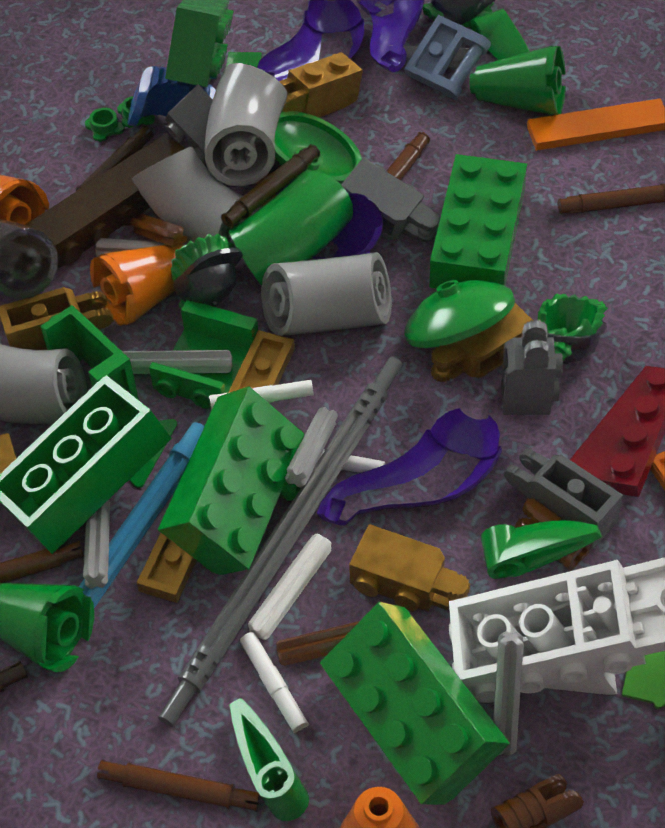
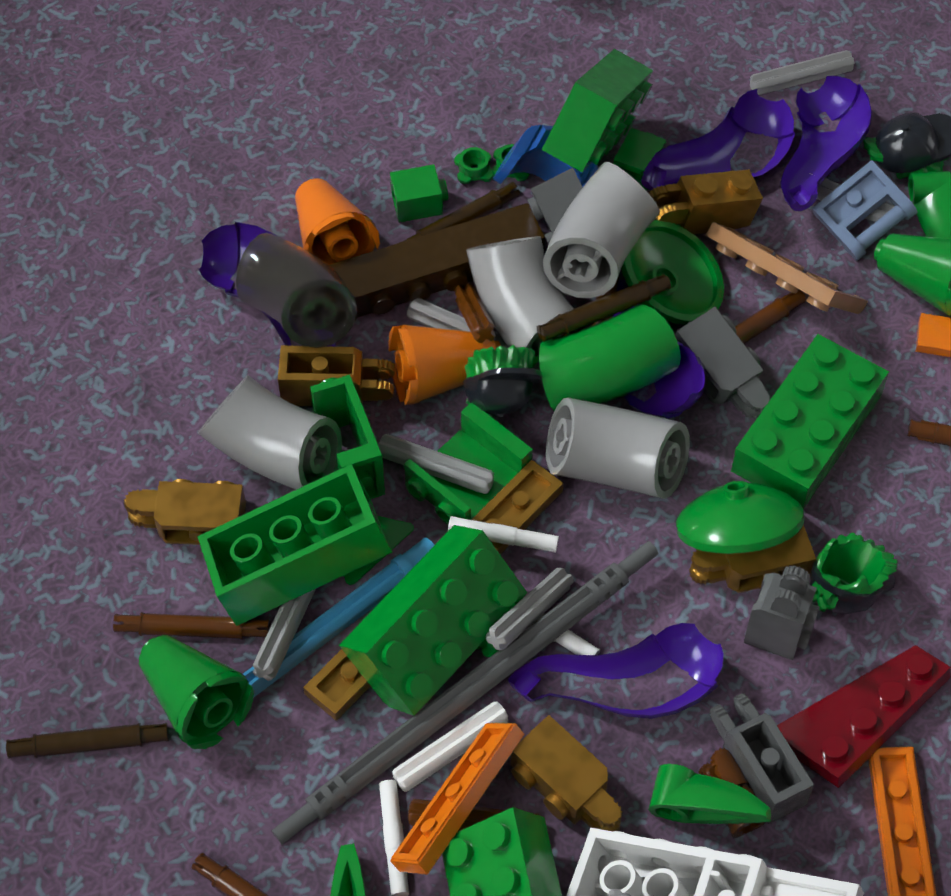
camera: 20 degrees right, 5 degrees up
(64, 158) = (418, 193): none -> green brick
(319, 623) = (456, 798): none -> orange tile
(410, 120) = (790, 274): none -> medium nougat wing

